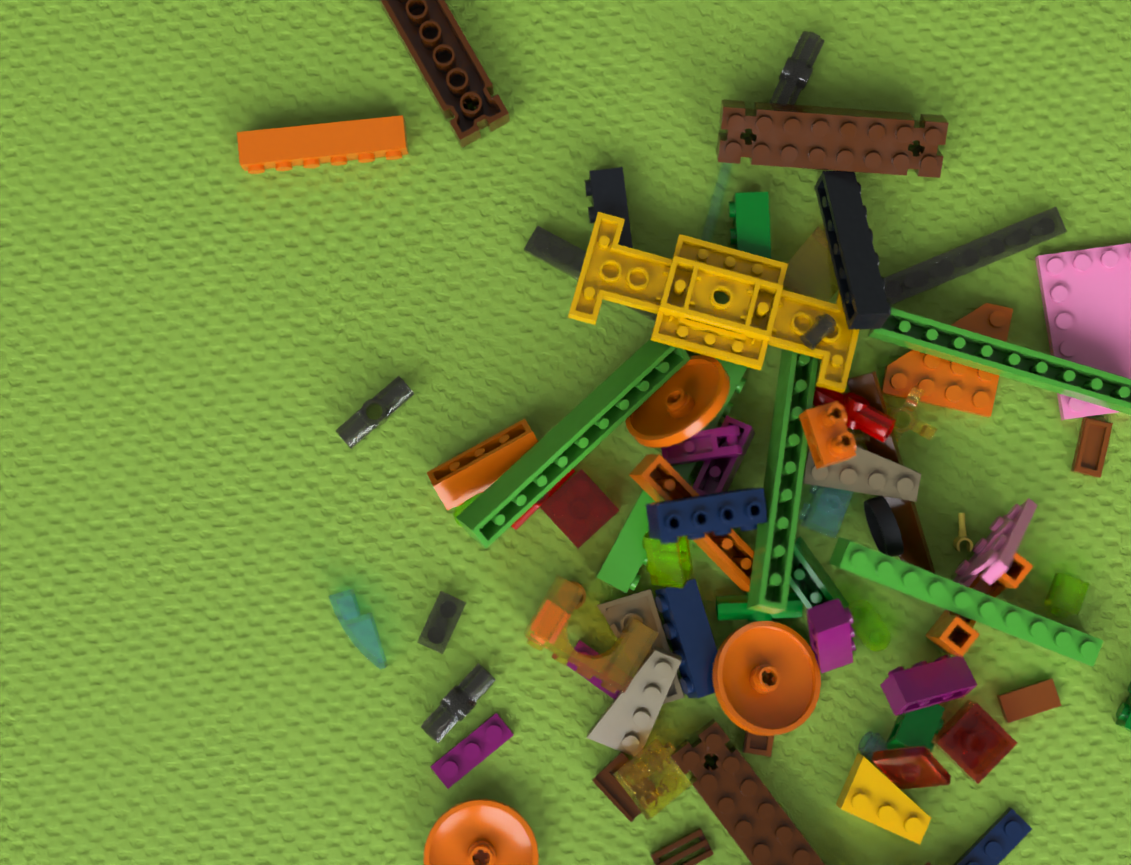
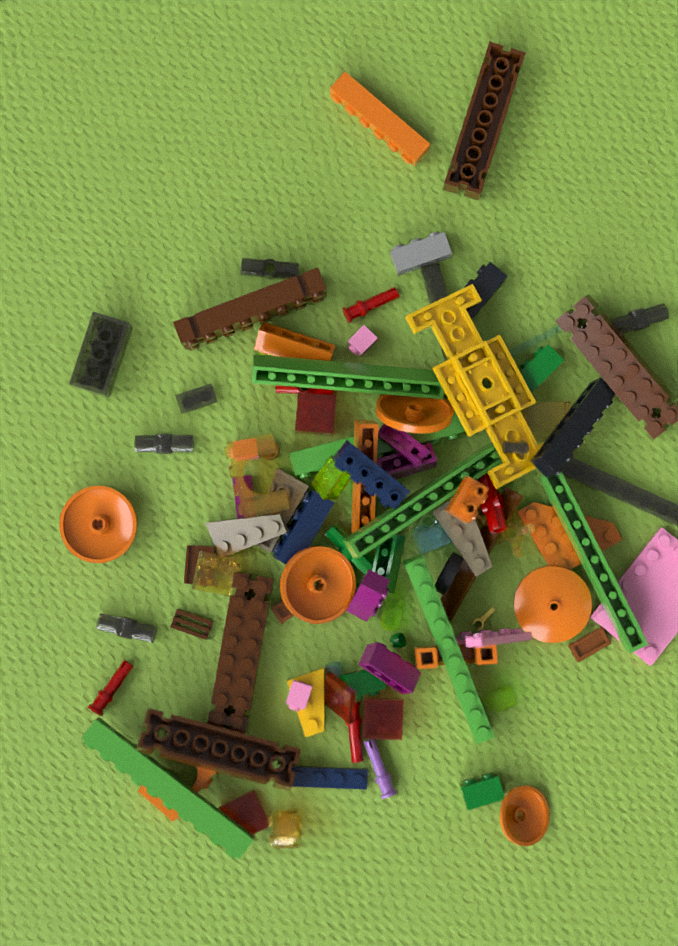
camera: 50 degrees right, 0 degrees up
(298, 682) = (101, 355): none -> clear smoke brick
(358, 627) = (155, 360): clear light blue slope -> none
(401, 473) = (251, 309): none -> reddish brown brick
(472, 750) = (147, 472): magenta plate -> none
(509, 235) = (420, 253): none -> light grey brick
(510, 352) = (362, 307): none -> red pin
(546, 386) = (361, 341): none -> bright pink brick
(870, 811) = (298, 695): none -> bright pink brick
(903, 647) = (398, 640): none -> green hinge
(968, 791) = (355, 737): none -> red pin
(991, 441) = (549, 586): none -> orange dish
(1029, 700) = (430, 729): dark orange tile -> none
(1034, 798) = (383, 778): none -> medium lavender pin

